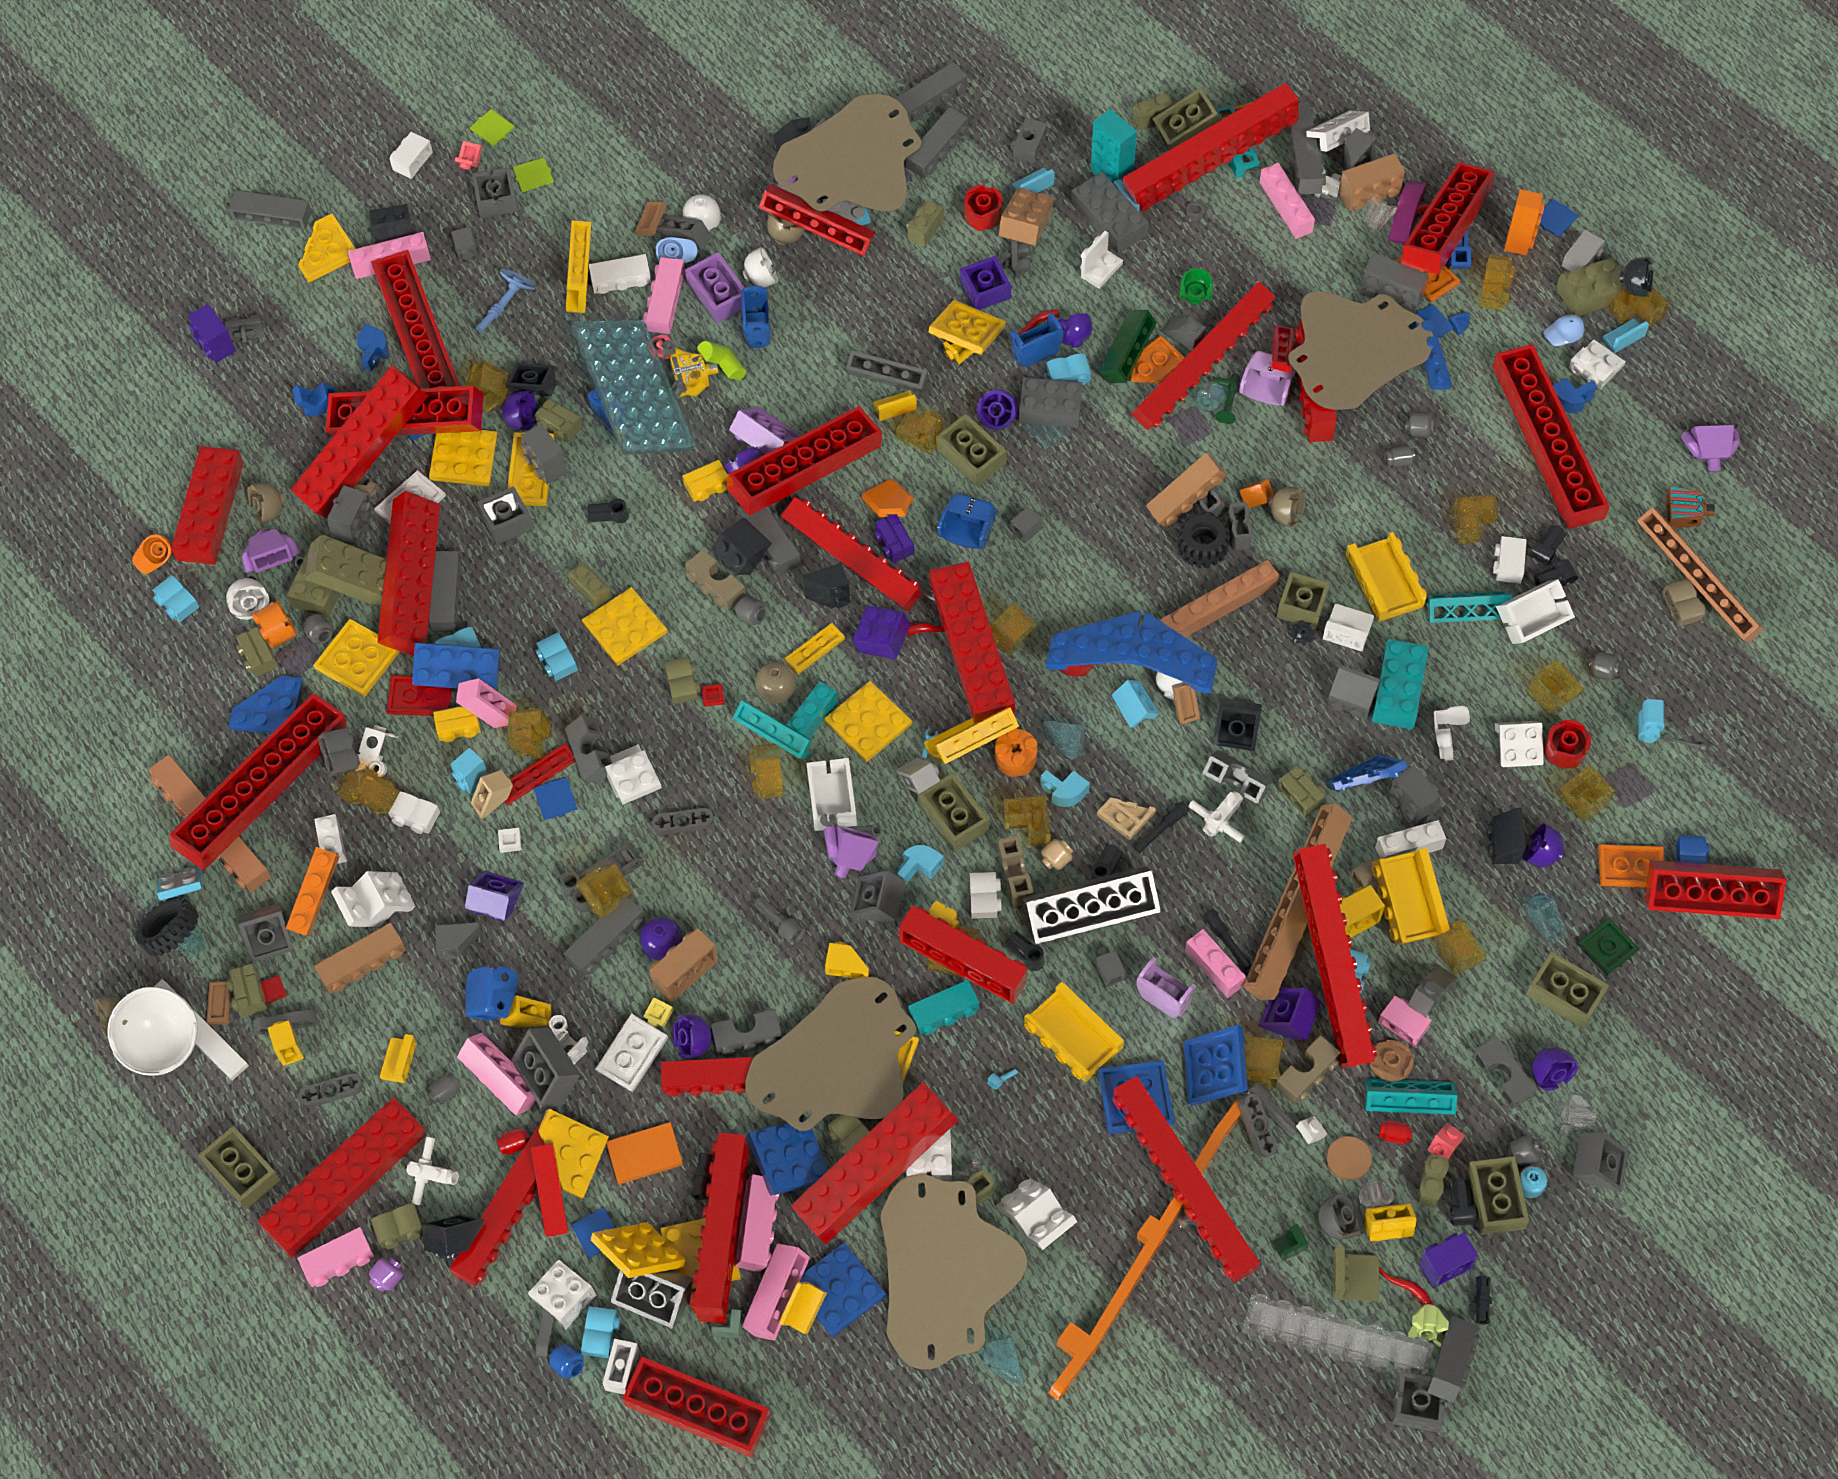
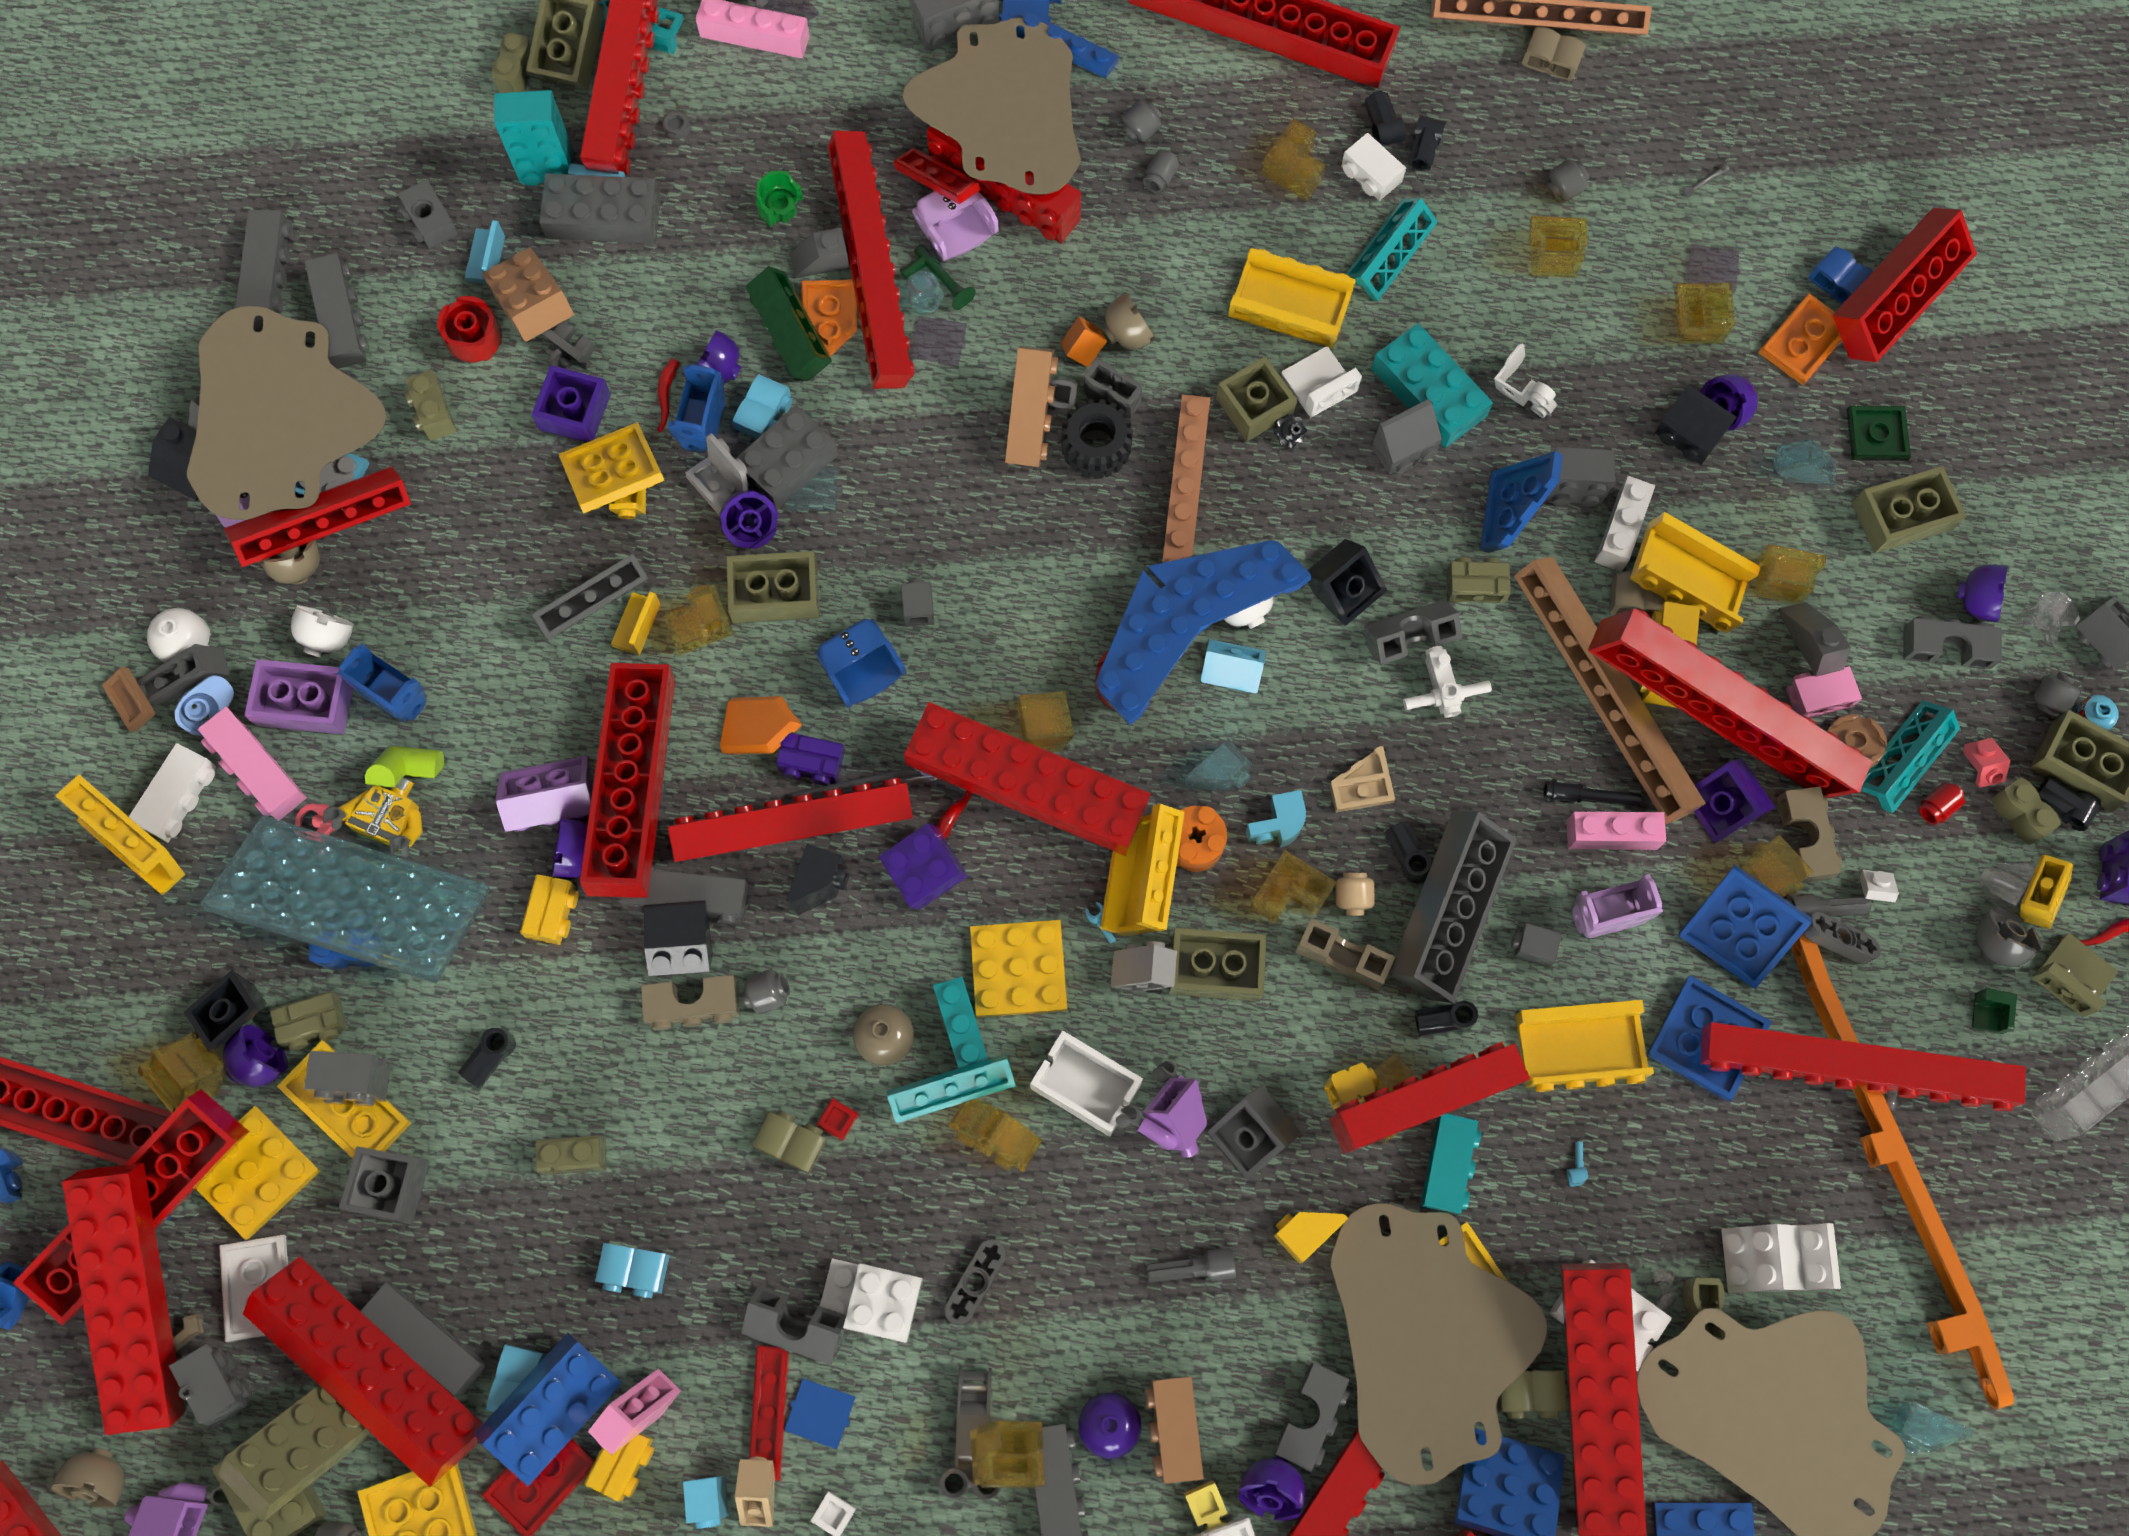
camera: 55 degrees left, 10 degrees up
(515, 283) = (69, 928): medium blue dish -> none
(527, 732) = (710, 1384): clear yellow plate -> none
(624, 626) = (657, 1154): yellow plate -> none
(814, 648) = (874, 956): yellow tile -> none
(920, 859) = (1244, 1045): medium azure brick -> none
(984, 895) = (1343, 1010): white brick -> none
(1009, 377) = (718, 474): none -> light grey bracket
(1098, 262) = (655, 269): white bracket -> none
(1168, 821) = (1403, 741): black pin -> none
(1185, 703) = (1283, 615): medium nougat tile -> none
(1349, 1158) = (1934, 873): medium nougat tile -> none
(1520, 743) = (1589, 325): white bracket -> none
(1535, 611) = (1460, 193): white piece -> none
(1567, 744) = (1631, 285): red brick -> none
(1651, 720) = (1670, 188): medium azure brick -> none

